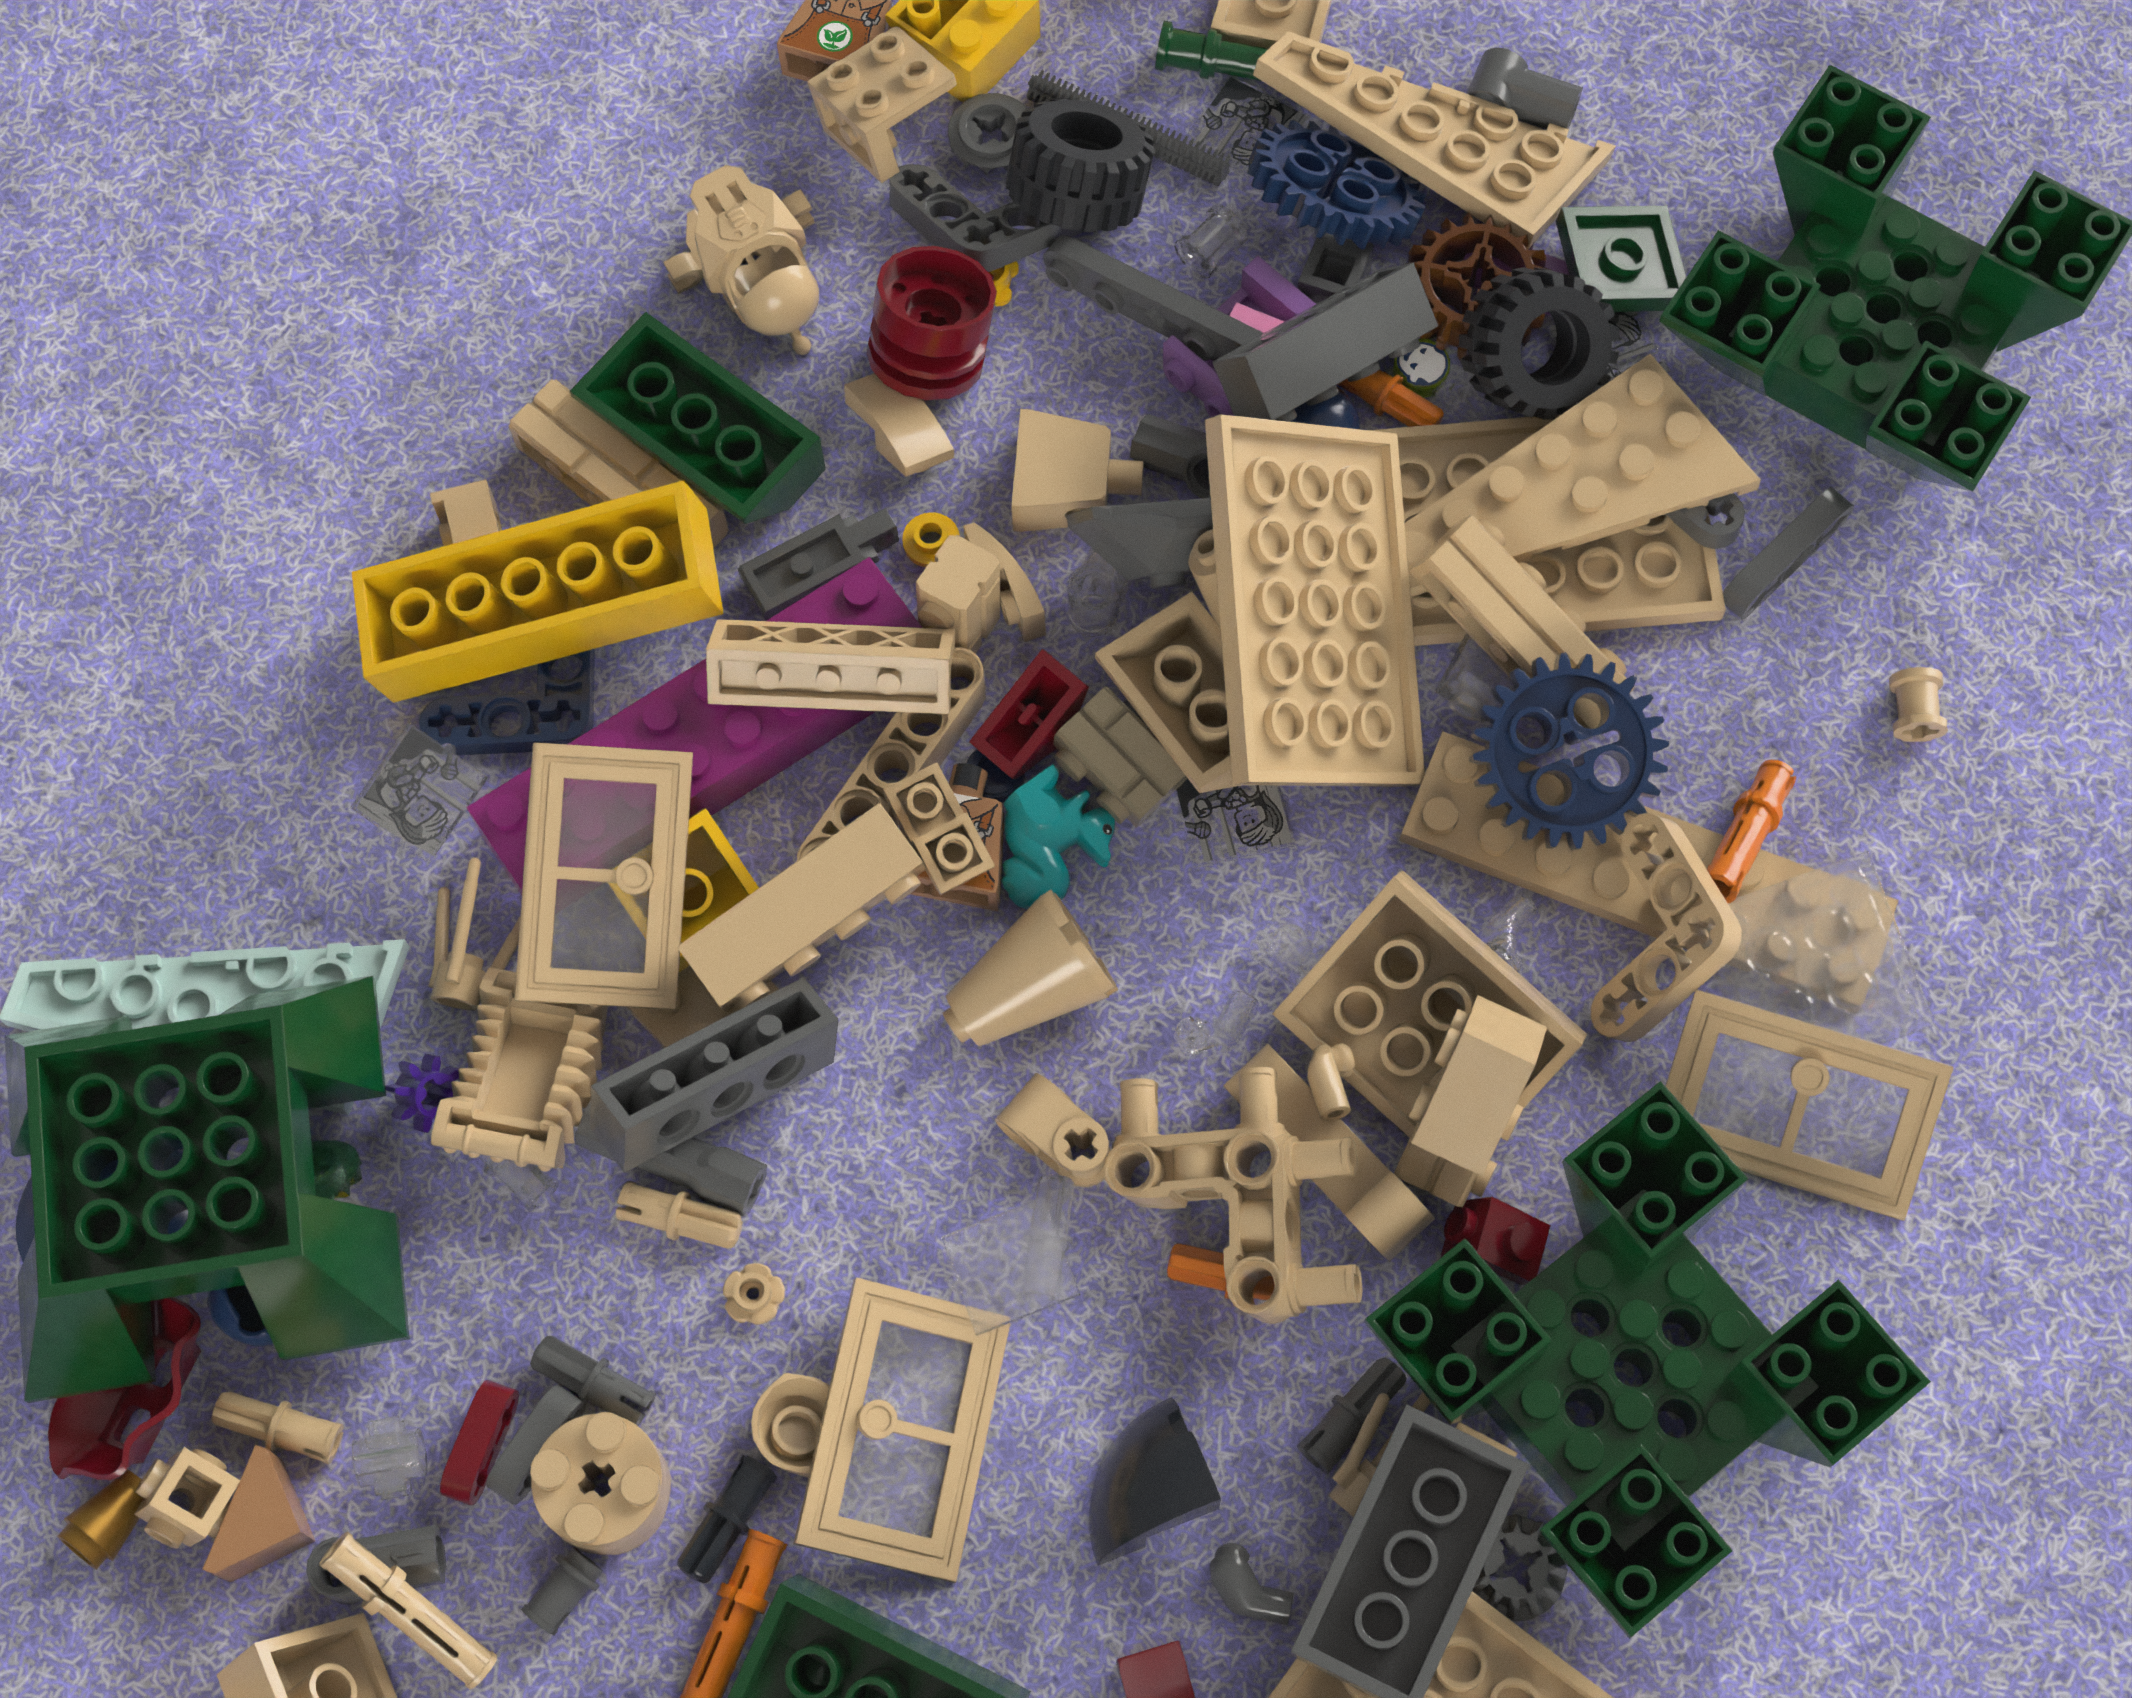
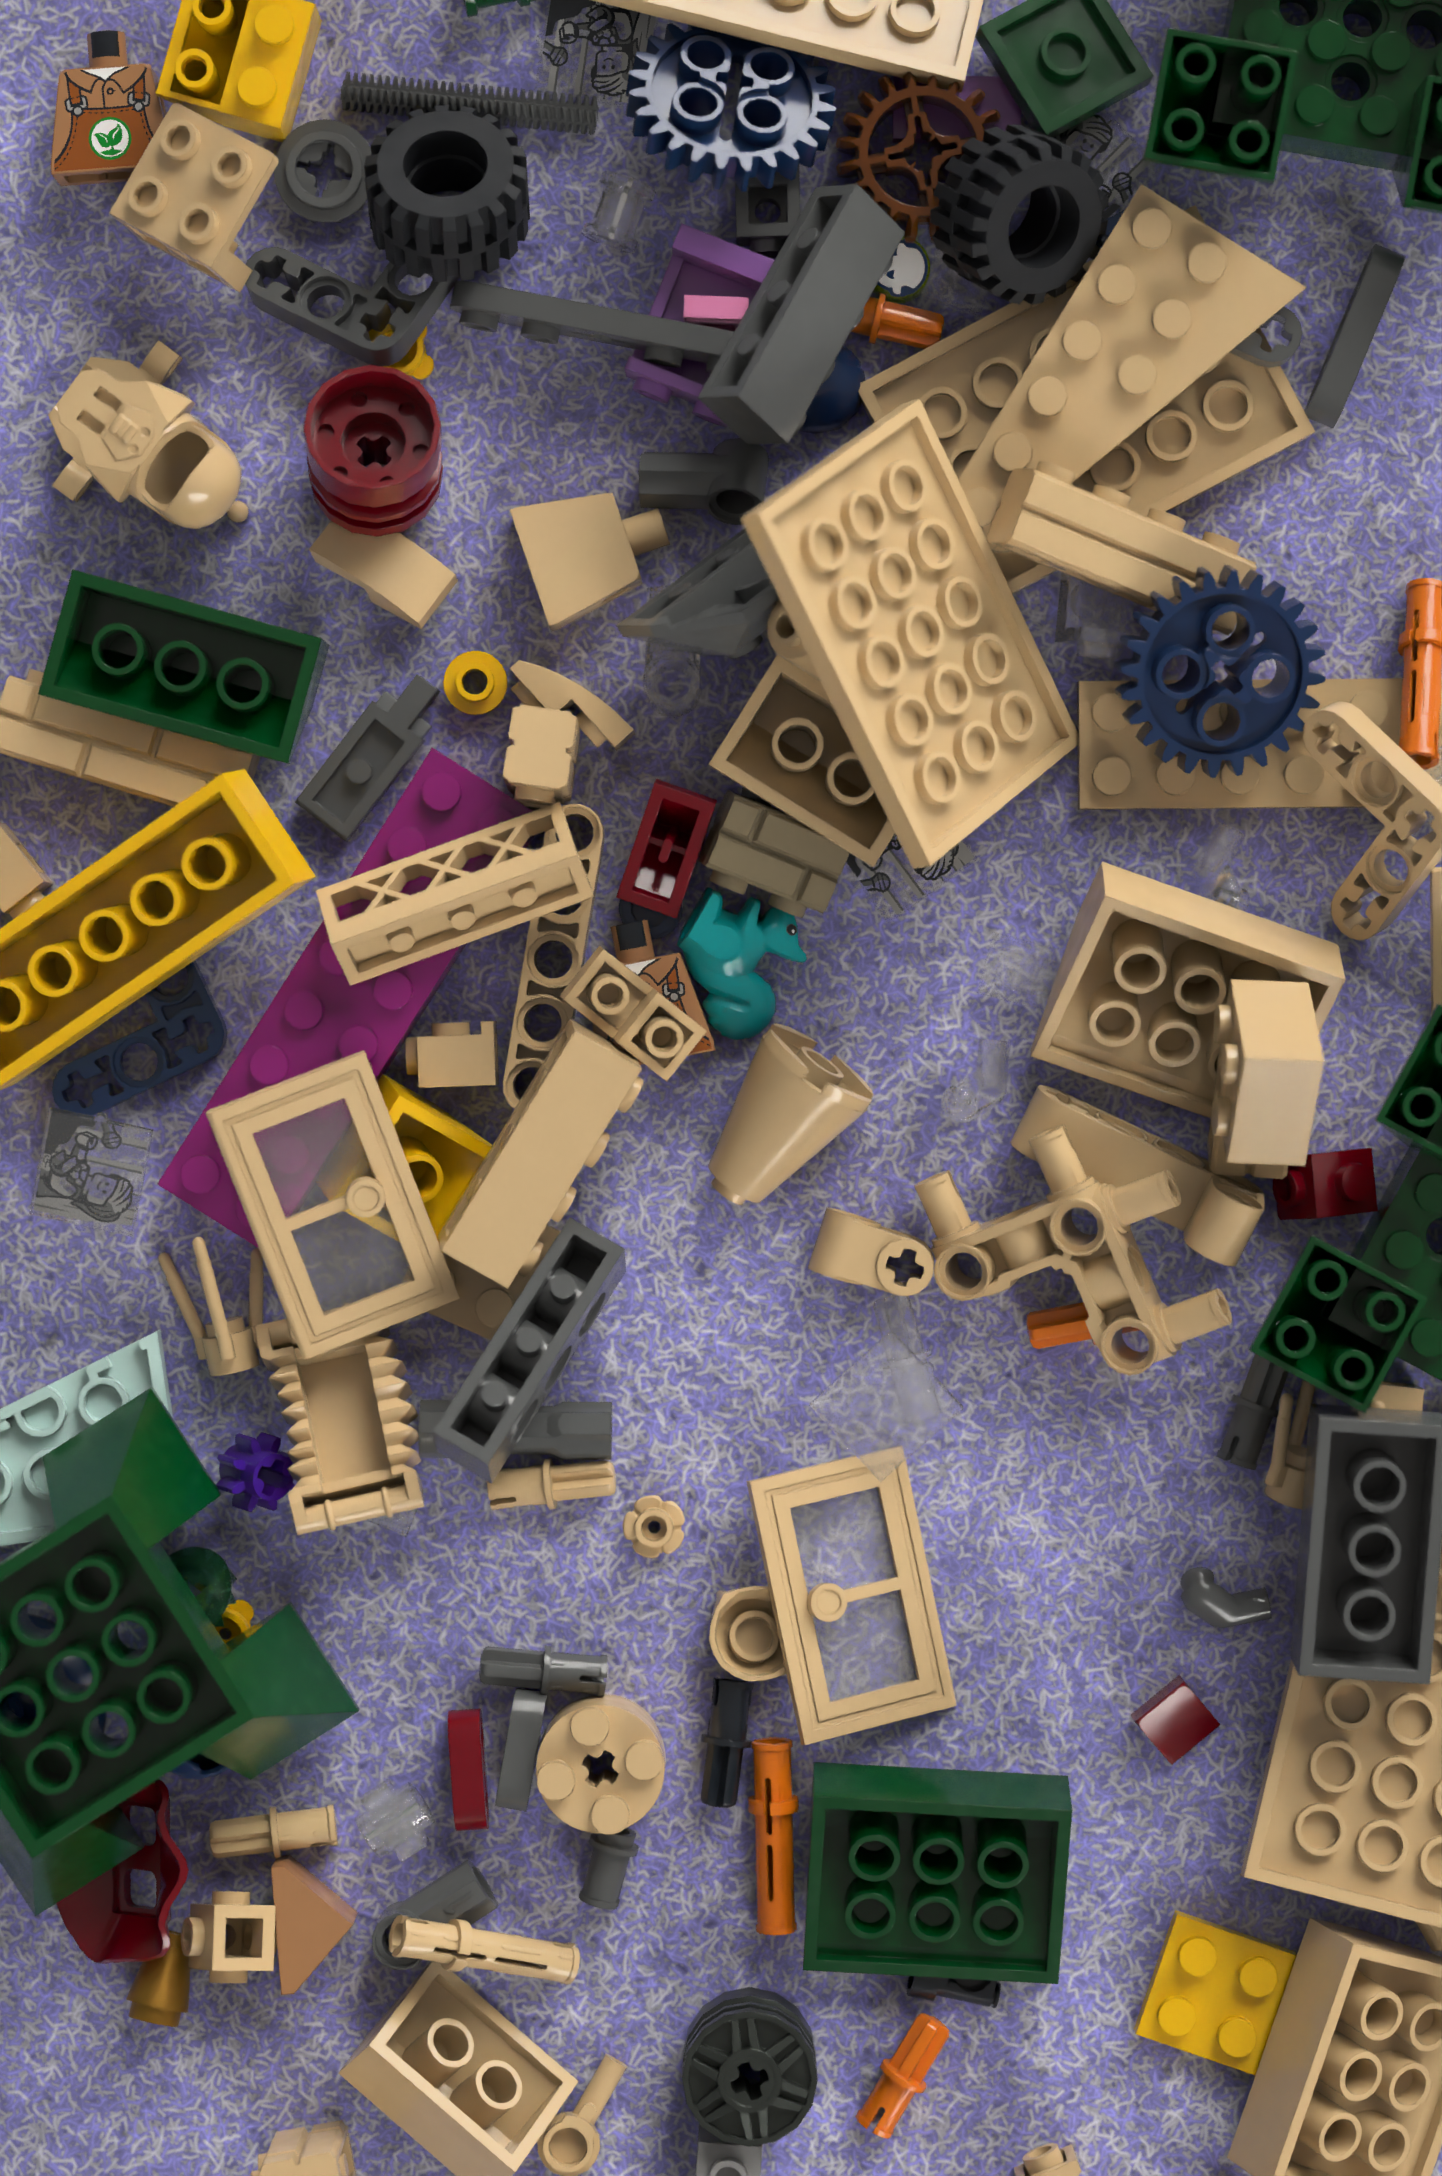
camera: 25 degrees left, 20 degrees up
(771, 819) = (454, 1056): none -> tan brick
(1148, 1483) = (1097, 1552): black brick -> none
(1325, 1082) = (1111, 1111): tan arm -> none

